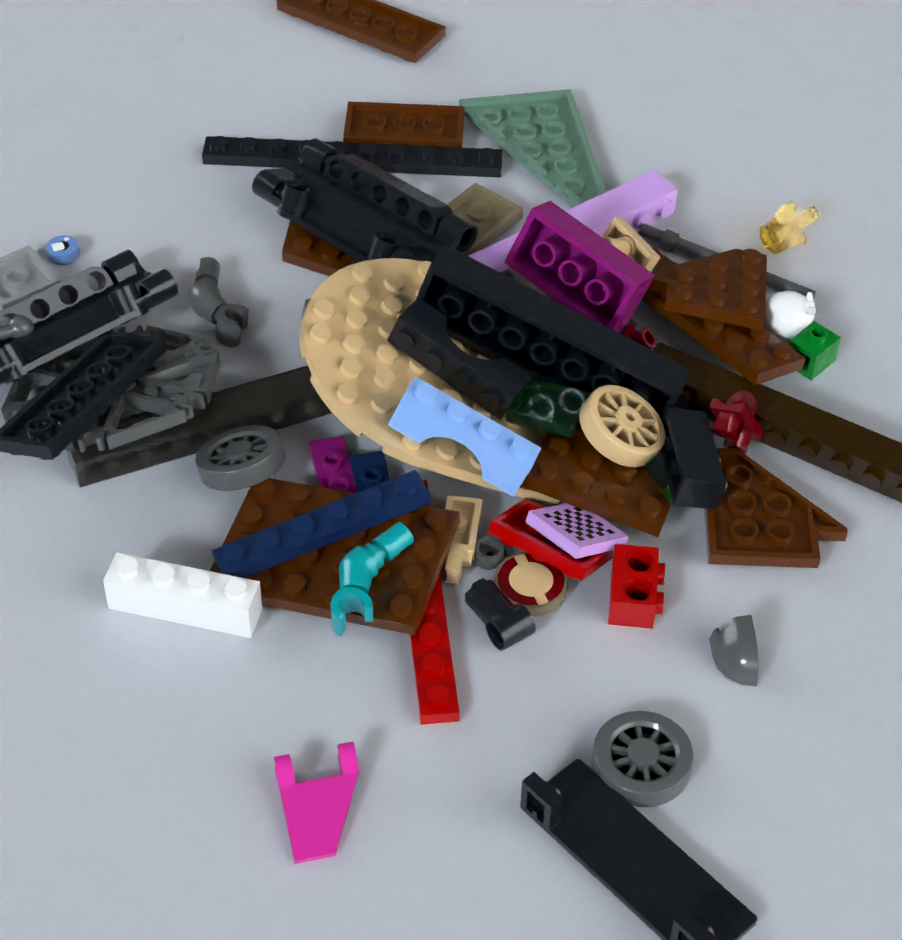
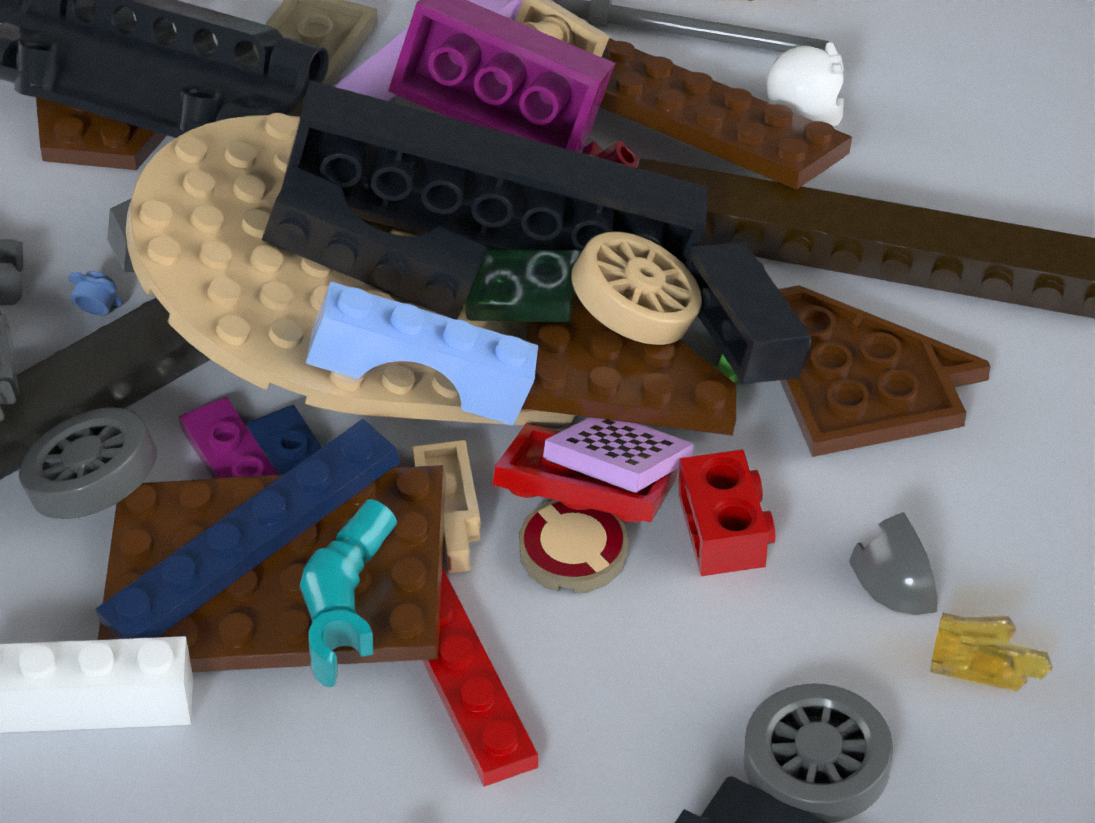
camera: 15 degrees left, 0 degrees up
(283, 351) = (94, 292): none -> medium blue plate
(489, 553) = (501, 515): dark grey plate -> none
(503, 620) = (557, 608): black piece -> none
(717, 287) = (699, 63): reddish brown wing -> none
(736, 420) = (790, 244): dark red hips -> none
(774, 720) = (980, 652): none -> clear yellow rock
(818, 347) = (860, 115): green brick -> none

